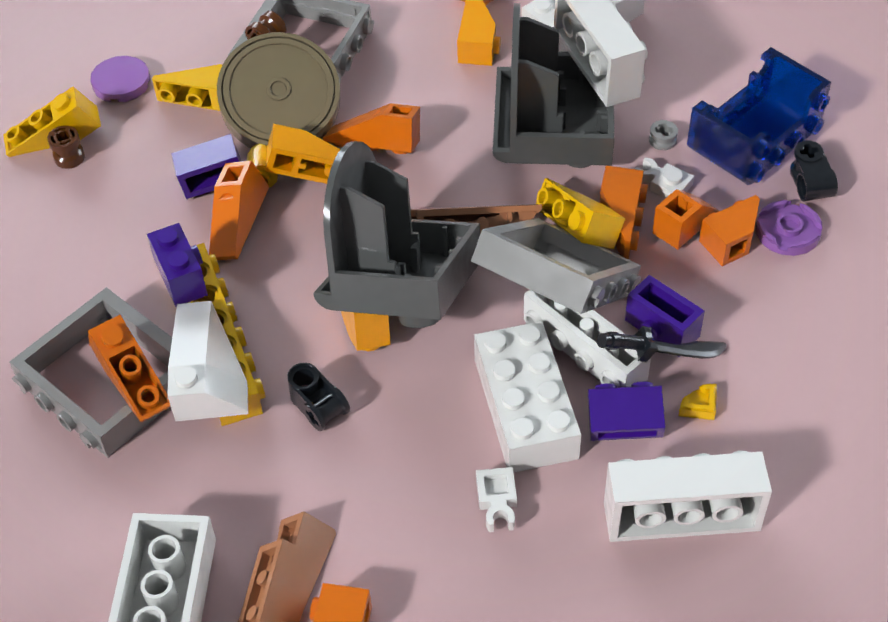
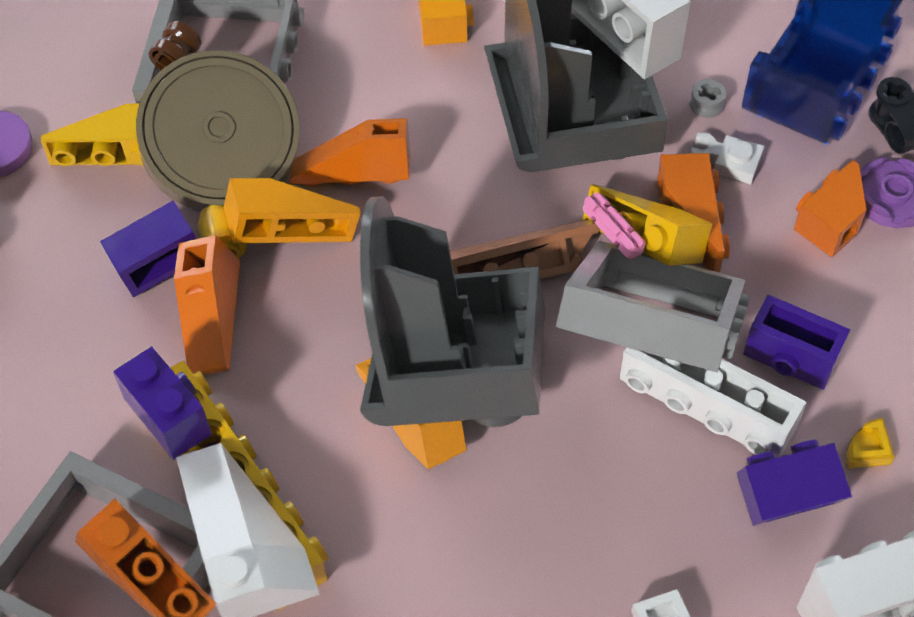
camera: 15 degrees left, 5 degrees up
(318, 400) = (401, 551): black piece -> none
(526, 397) = (663, 488): white brick -> none
(549, 207) = (614, 226): none -> bright pink axle
(646, 346) = (803, 395): black sword -> none
(680, 217) = (770, 206): orange slope -> none

